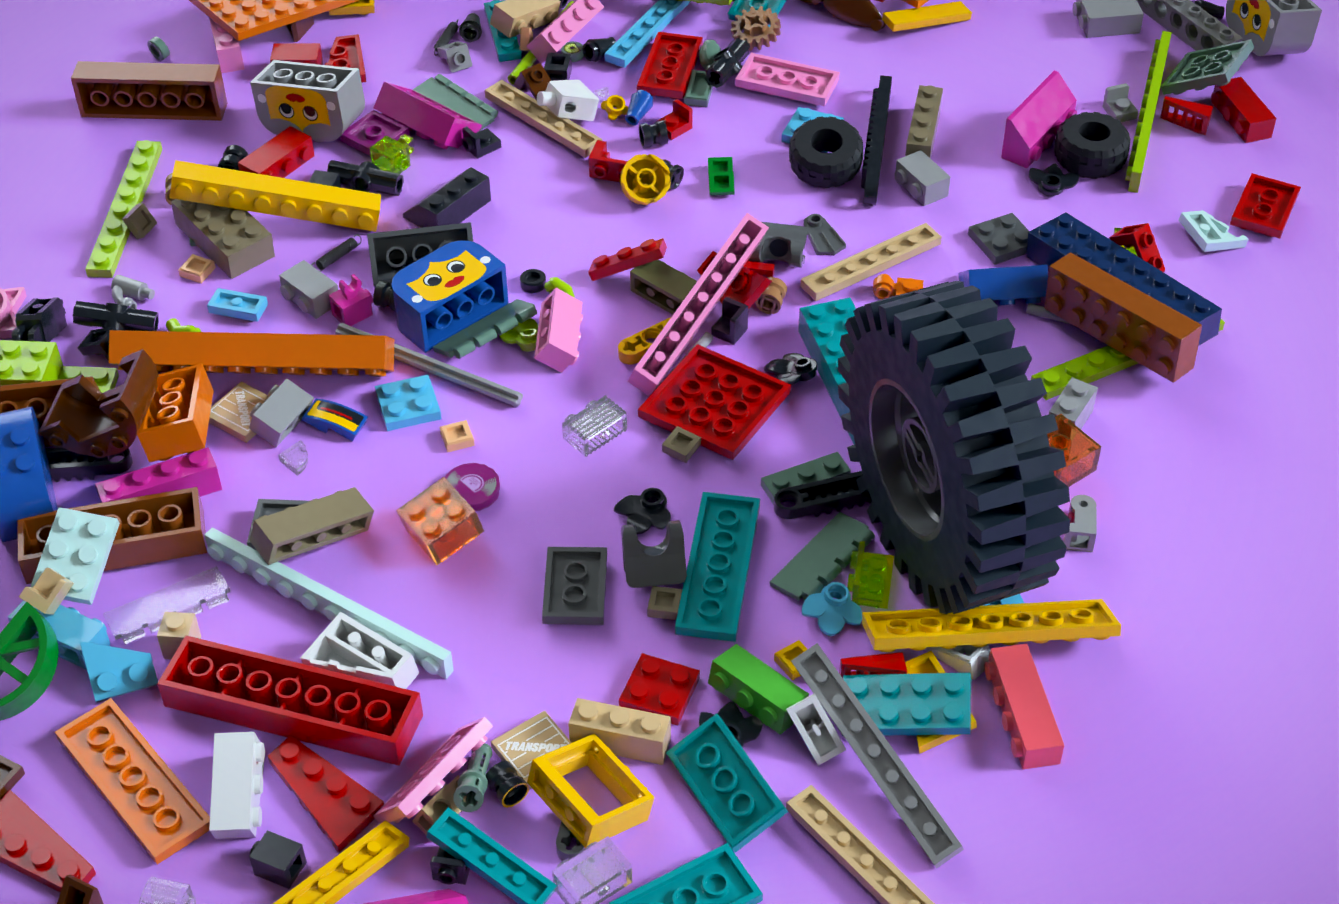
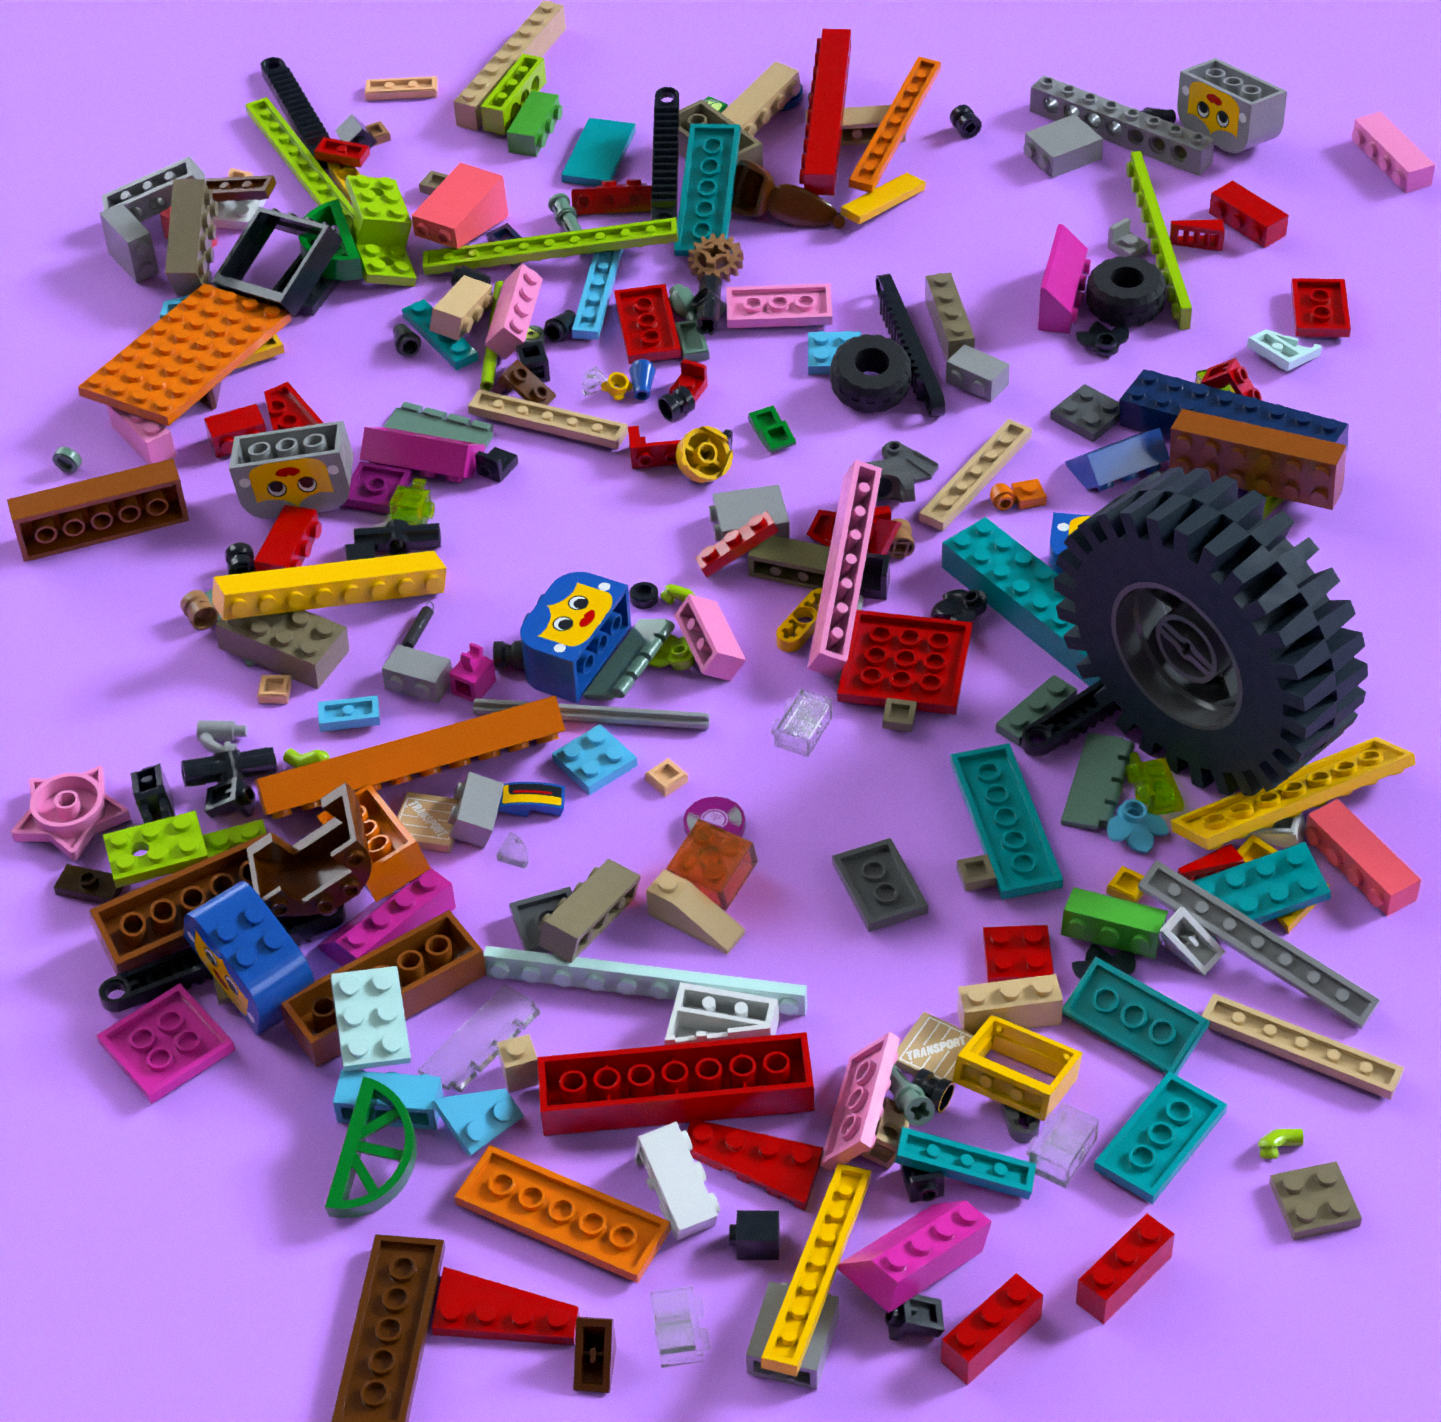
camera: 20 degrees left, 0 degrees up
(47, 591) = (370, 1059): tan panel -> none
(130, 192) = (149, 649): lime plate -> none
(139, 220) = (180, 656): dark tan plate -> none
(400, 248) = (500, 605): dark grey slope -> none
(402, 556) = (692, 912): none -> tan slope
(446, 36) = (383, 358): dark grey piece -> none
(452, 201) = (506, 537): black slope -> none
(456, 55) = (409, 373): light grey bracket -> none
(526, 37) = (478, 337): light nougat tile -> none
(569, 100) = (570, 391): white torso -> none
(645, 510) = (901, 791): black plate -> none
(654, 564) = (952, 837): dark grey piece -> none
(675, 232) = (735, 509): none -> light grey brick
(1207, 67) = (1196, 179): sand green plate -> none

